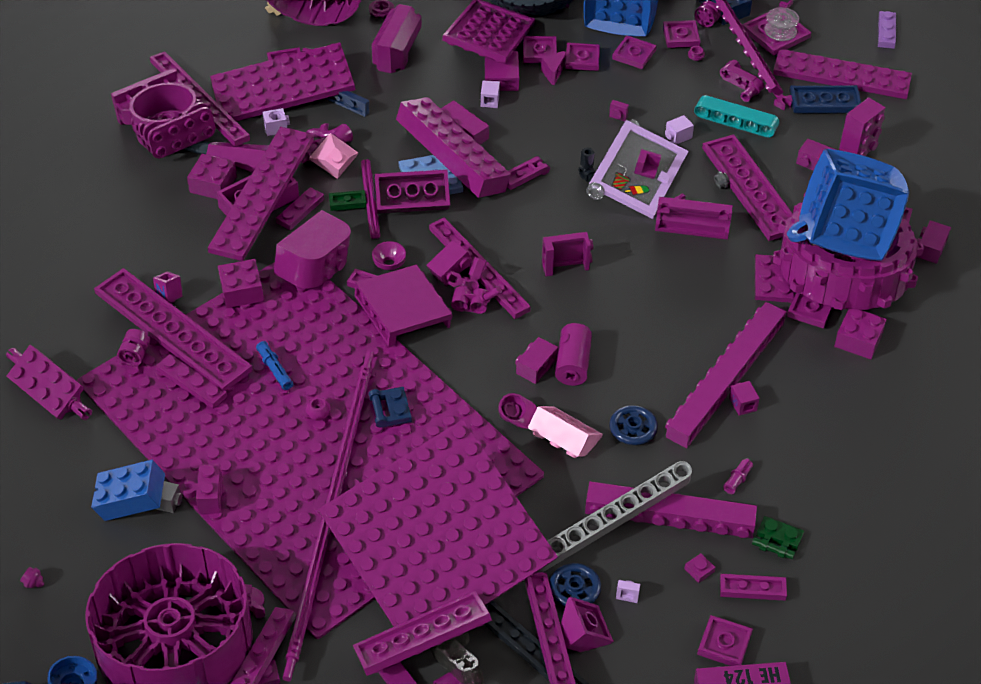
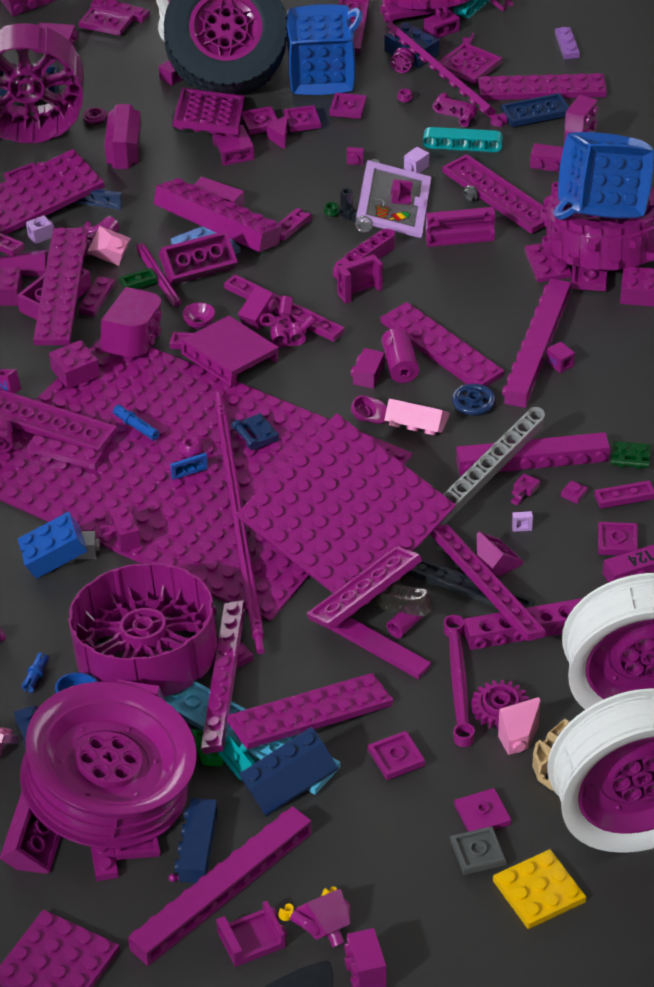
camera: 15 degrees left, 5 degrees down
(52, 636) = (35, 672): none -> blue pin
(304, 430) = (189, 466): none -> blue slope
(490, 94) = (231, 166): lavender brick -> none
(571, 165) = (331, 209): none -> dark green plate
(575, 580) = (474, 526): dark blue plate -> none
(592, 222) = (378, 244): none -> magenta piece
(625, 353) = (443, 346): none -> magenta plate
(648, 547) = (524, 486): none -> magenta plate
(681, 33) = (384, 82): magenta plate -> none
(738, 476) = (578, 417): magenta axle -> none
(781, 24) = (474, 54): clear piece -> none

